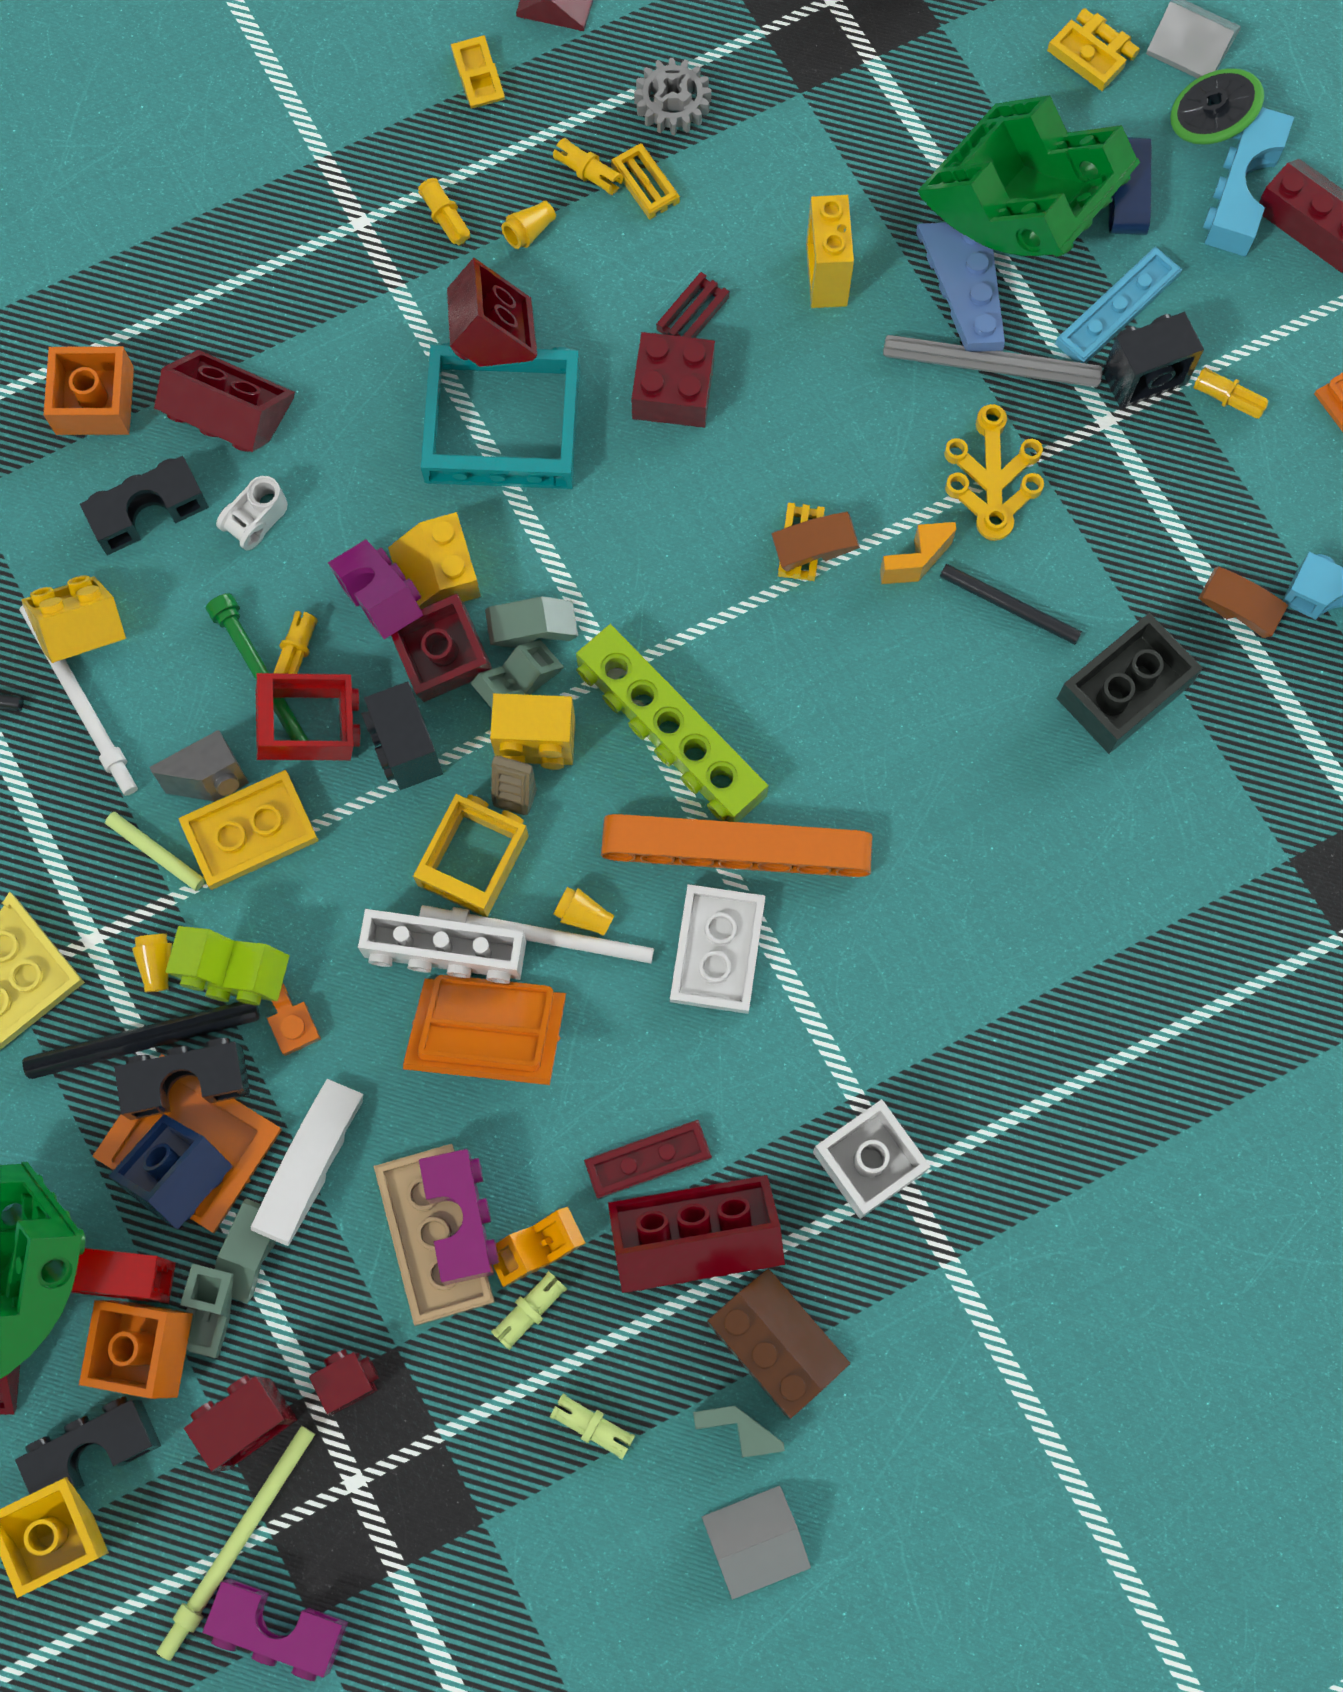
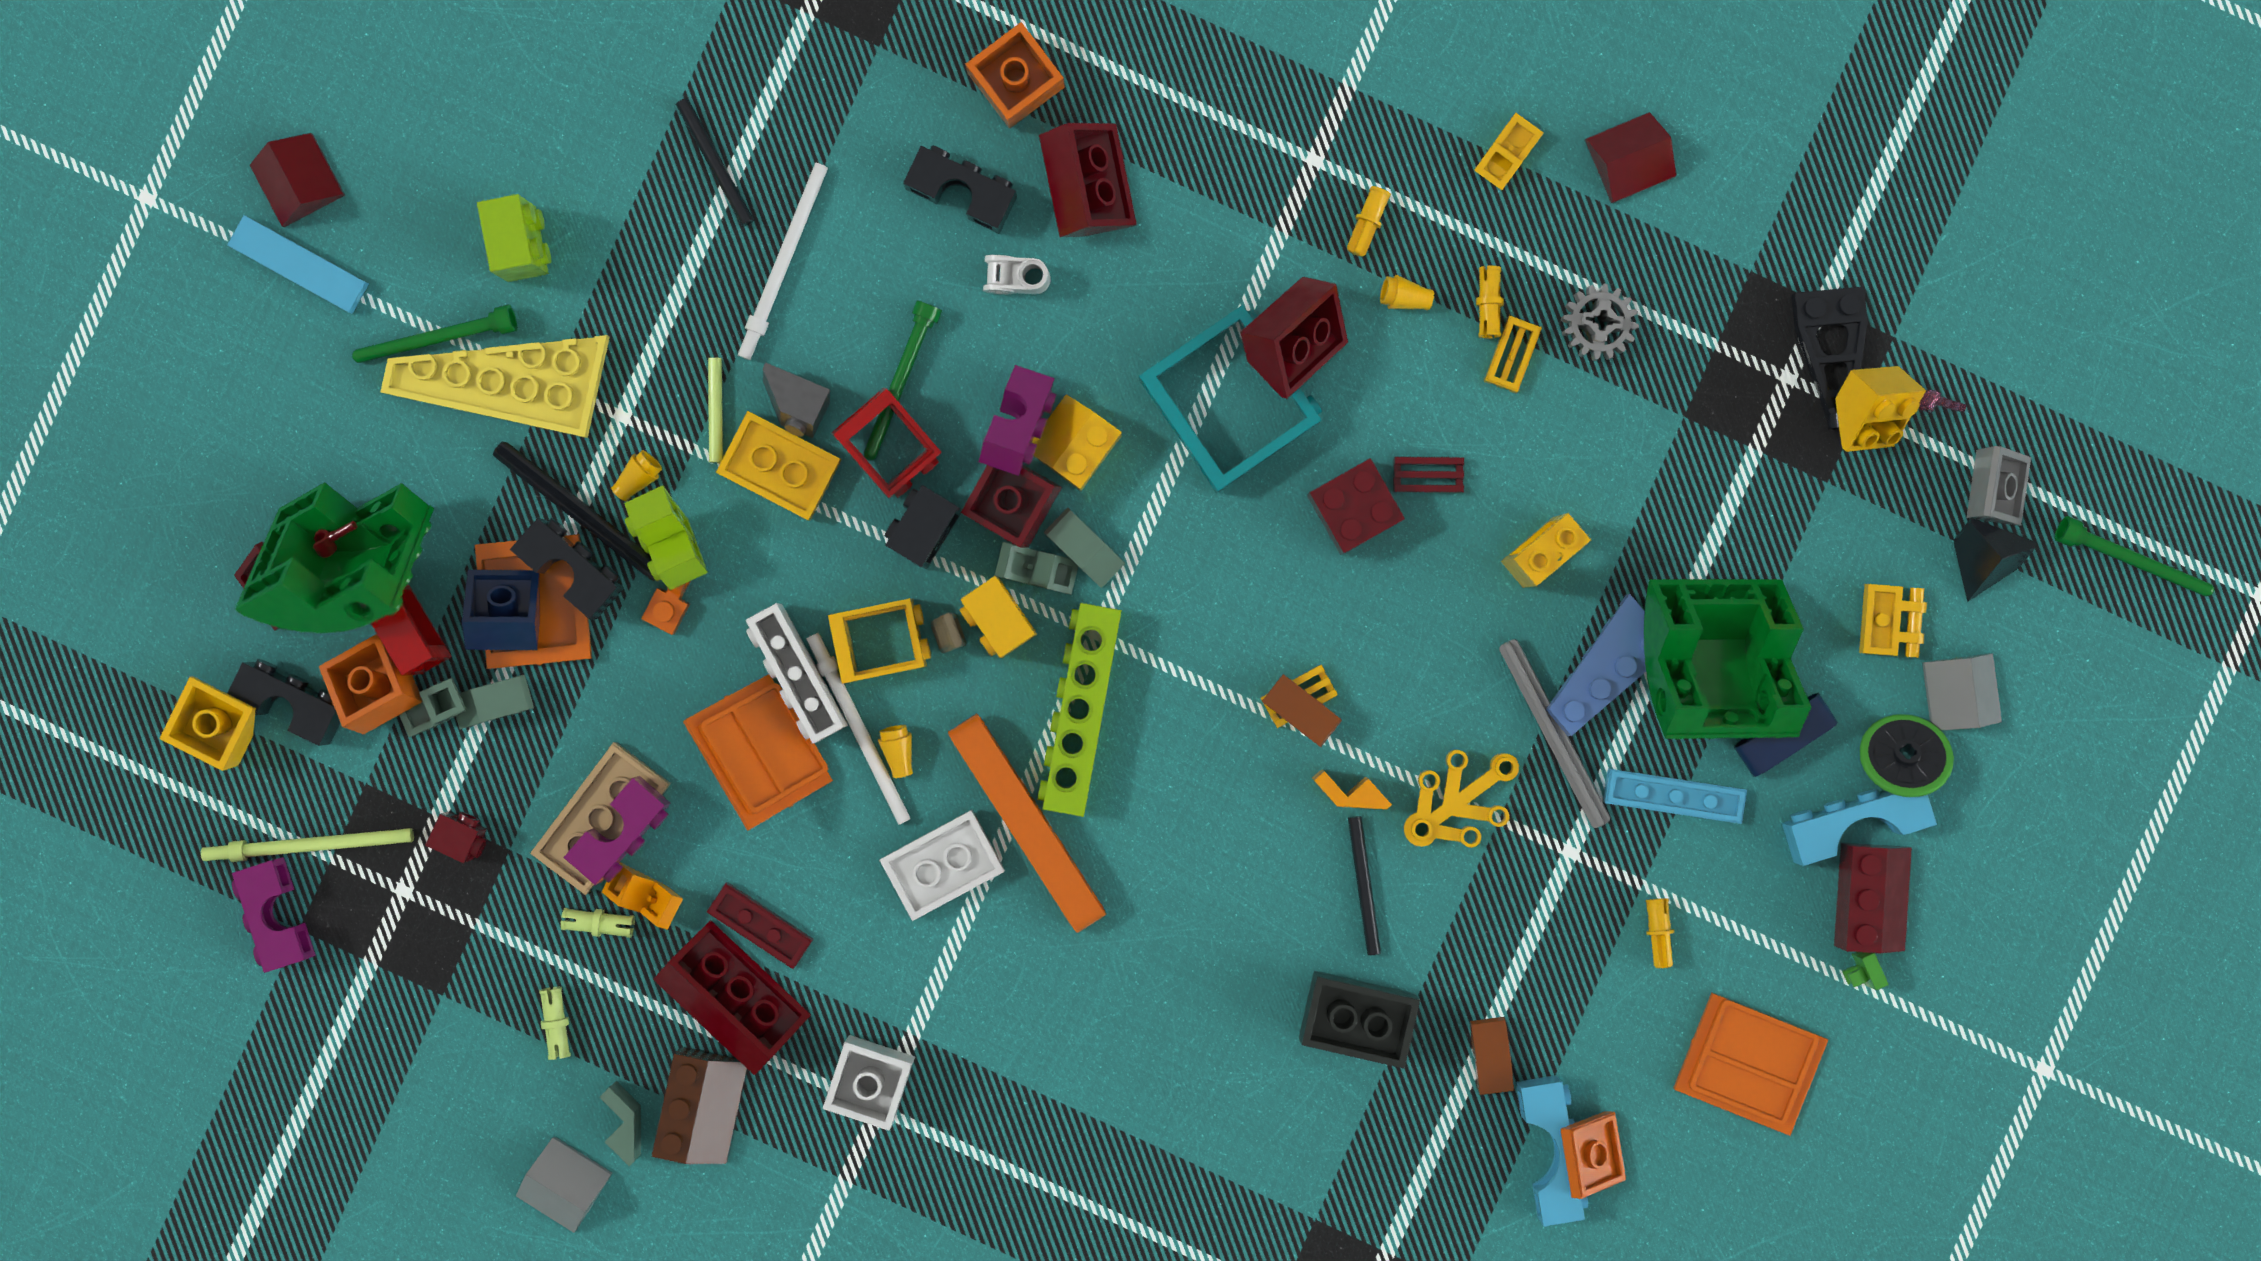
camera: 55 degrees right, 15 degrees up
(73, 617) = (834, 212): yellow slope -> none
(239, 1423) = (376, 793): dark red brick -> none
(295, 645) = (935, 390): yellow axle -> none
(306, 1162) = (579, 697): white slope -> none
(1152, 359) = (1643, 862): black brick -> none

